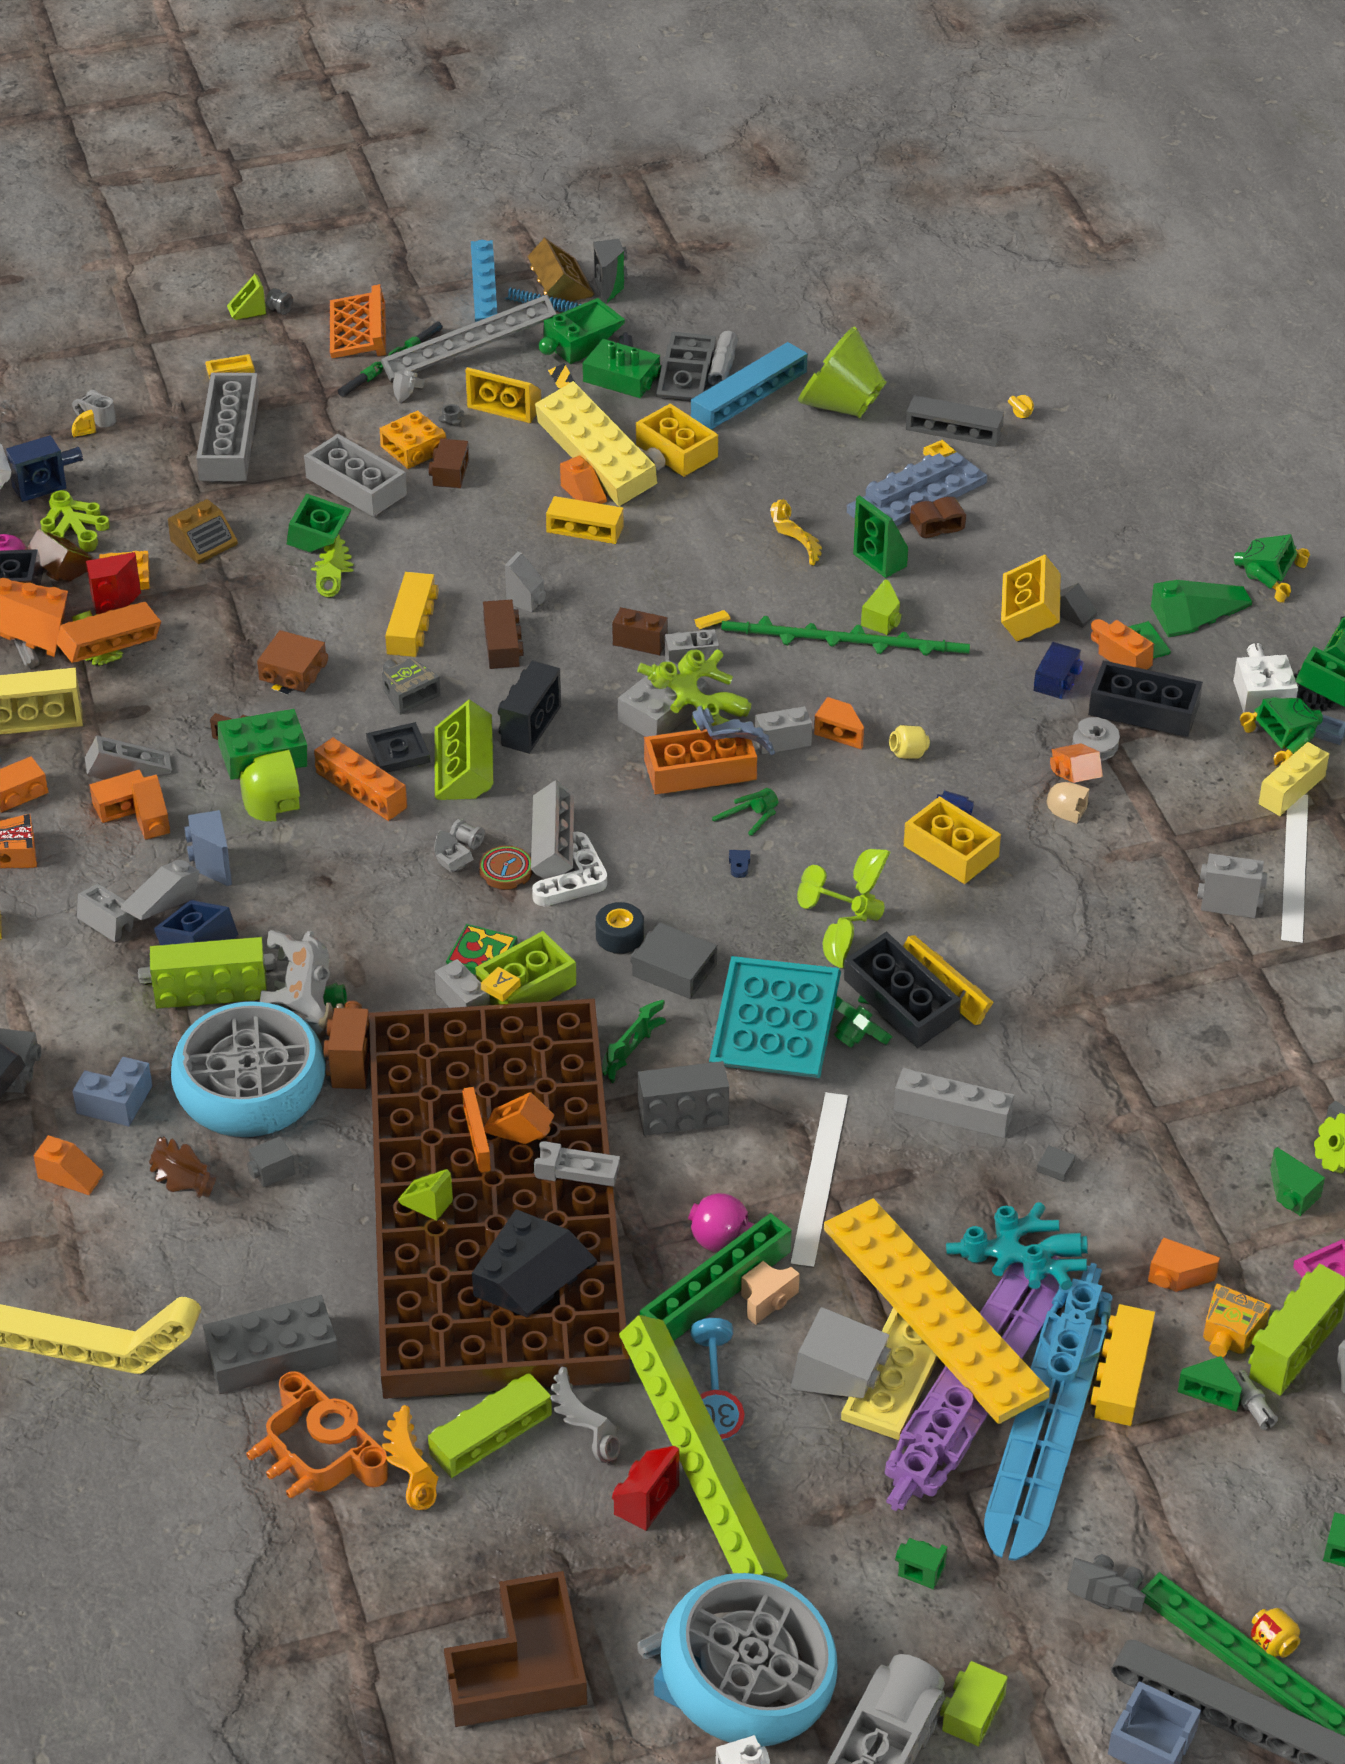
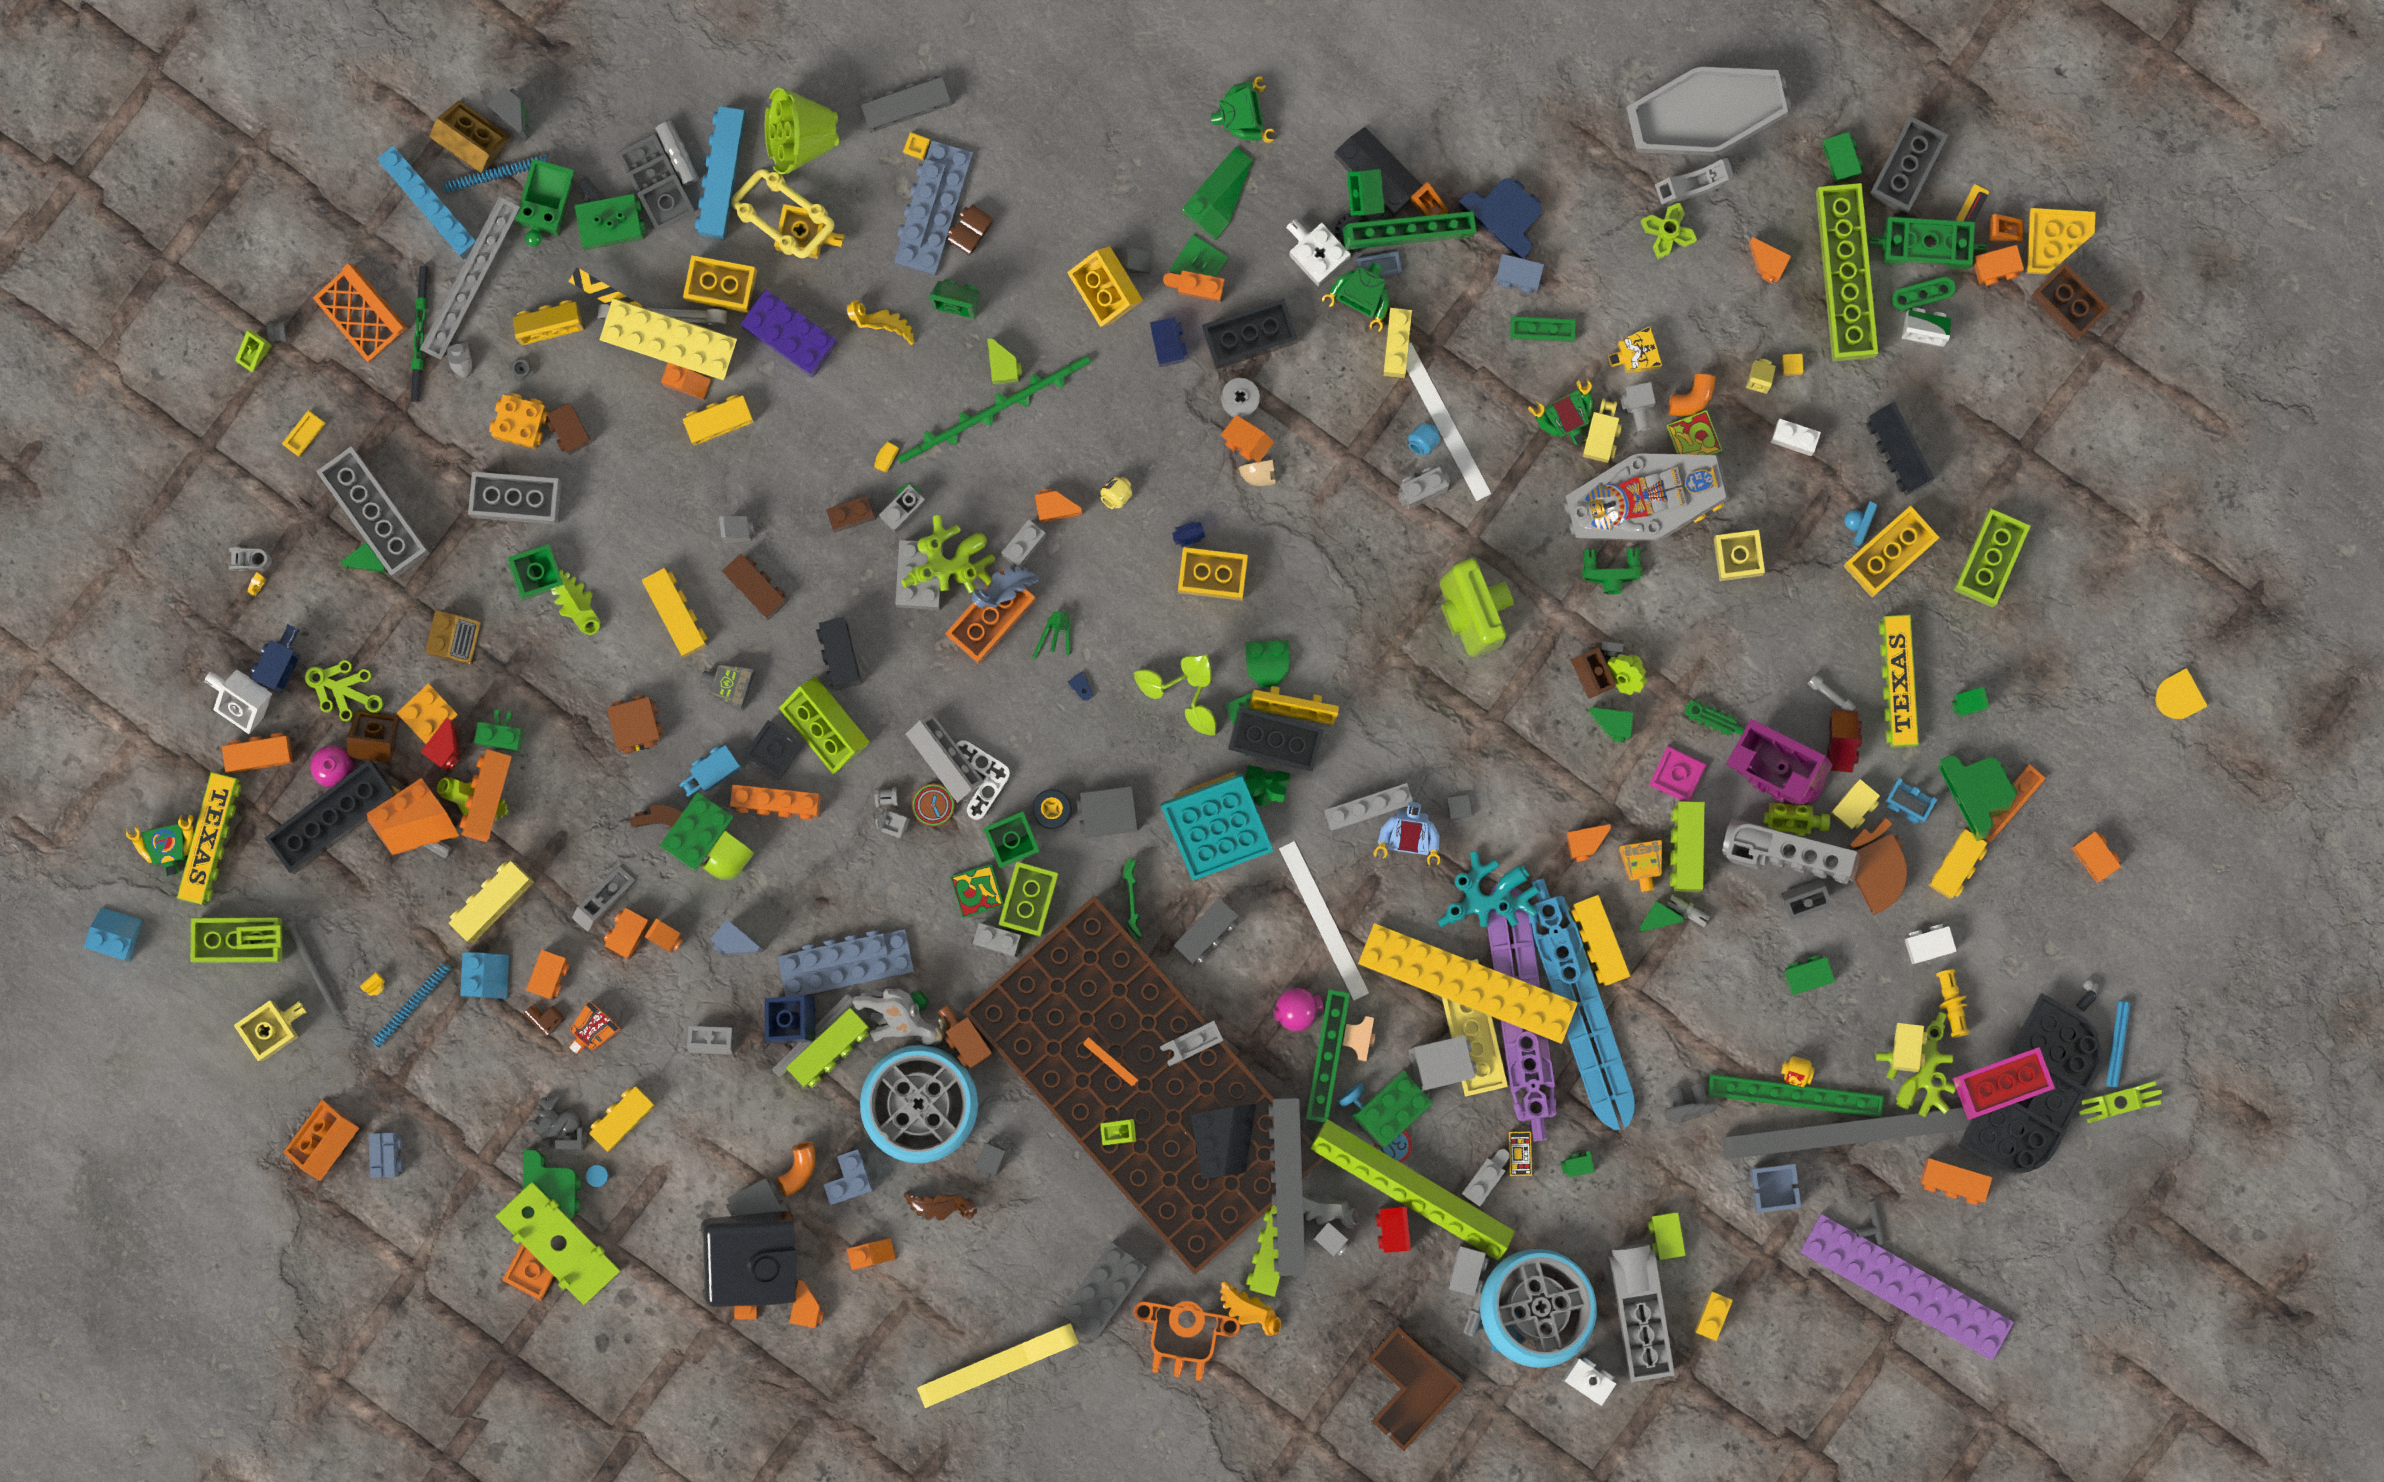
camera: 30 degrees left, 40 degrees up
(76, 1059) = (801, 1170): none -> orange cylinder
(165, 889) = (737, 1003): light grey slope -> none
(170, 608) = (499, 736): none -> green brick
(183, 452) = (364, 559): none -> green slope
(323, 725) = (711, 771): none -> dark azure brick
(348, 948) = (845, 963): none -> sand blue plate
(500, 984) = (1029, 930): yellow tile -> none
(520, 1120) = (1130, 1036): orange slope -> none
(557, 915) = (1011, 839): none -> green slope
(559, 1352) = (1288, 1182): none -> dark grey brick
(564, 1444) = (1331, 1240): none -> light grey piece
(691, 1565) = (1467, 1271): none -> light grey brick
(706, 498) = (789, 333): none -> dark purple brick
(745, 1367) = (1391, 1109): none -> green brick
(761, 424) = (787, 243): none -> light yellow bar
(783, 444) = (794, 219): none -> yellow brick
(798, 1504) = (1486, 1178): none -> light grey brick
(859, 1513) = (1520, 1154): none -> tile
(951, 937) = (1267, 661): none -> green slope
(979, 1141) = (1410, 833): none -> torso
(1021, 405) = (943, 48): yellow plate -> none
(1208, 987) = (1473, 607): none -> lime piece
(1267, 852) = (1424, 439): none -> dark azure head
(1303, 1124) = (1593, 673): none -> reddish brown brick

